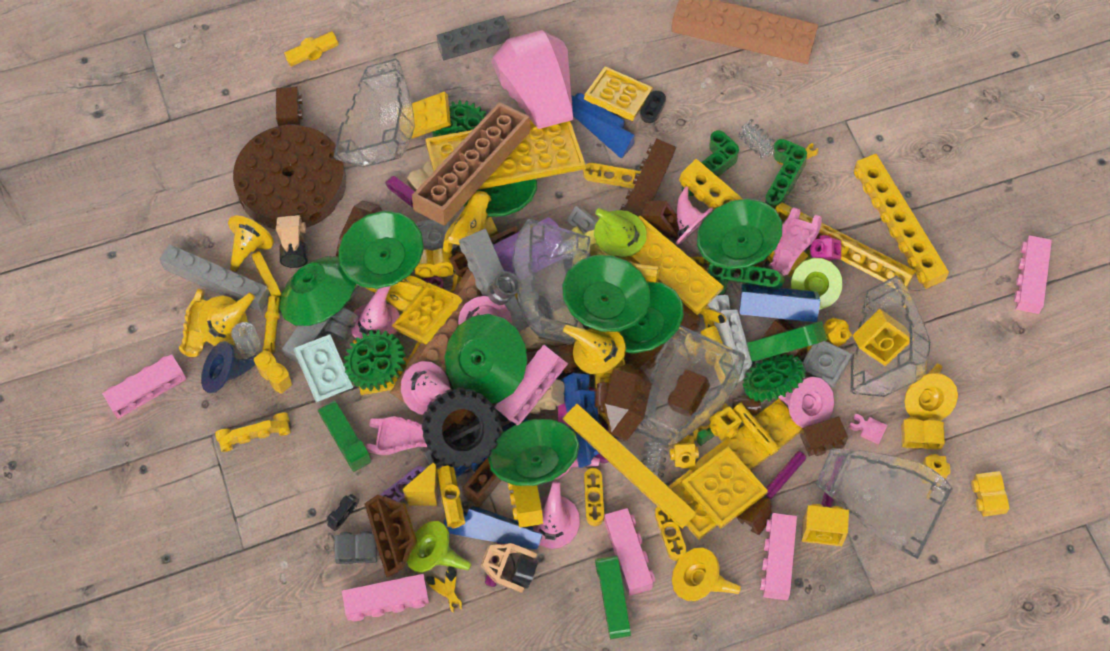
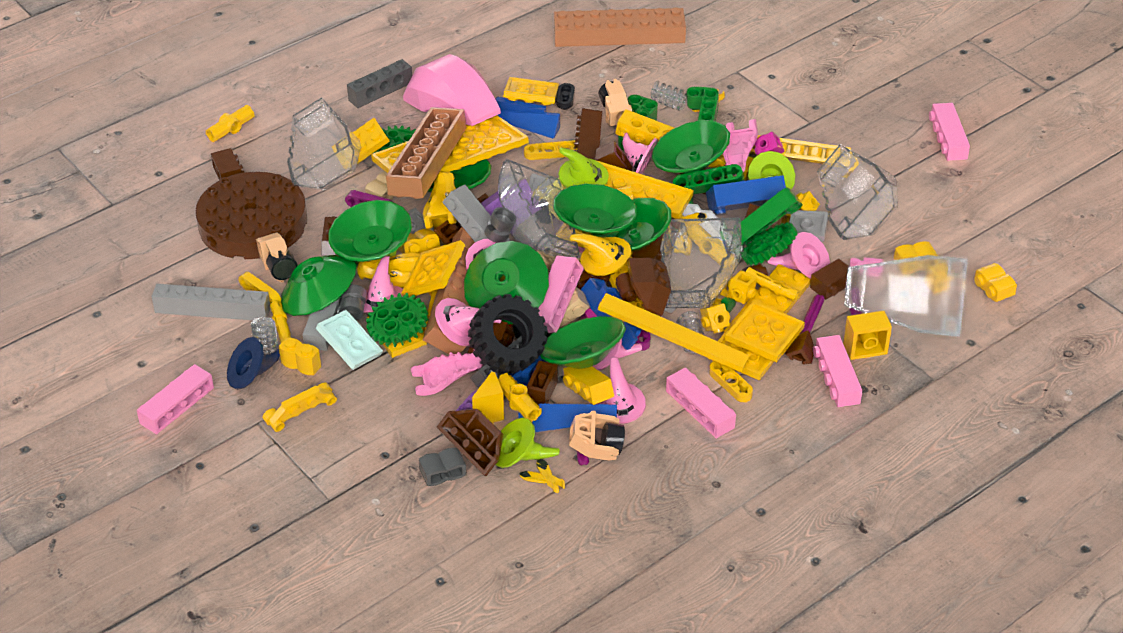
camera: 20 degrees left, 20 degrees down
(193, 341) = (212, 338): yellow animal -> none
(220, 316) = (234, 326): yellow piece -> none
(247, 238) = (233, 257): yellow piece -> none
(344, 436) = (404, 394): green beam -> none
(346, 507) = (418, 439): black plate -> none
(385, 597) = (488, 494): bright pink brick -> none
(589, 510) = (649, 366): yellow beam -> none
(613, 597) = (694, 418): green beam -> none
(688, 393) = (700, 269): reddish brown brick -> none
(696, 129) = (614, 100): none -> light nougat piece
(698, 575) = (775, 398): yellow piece -> none
(882, 337) = (848, 191): yellow brick -> none
(900, 211) = (818, 120): yellow brick -> none
(931, 396) = (910, 225): yellow piece -> none

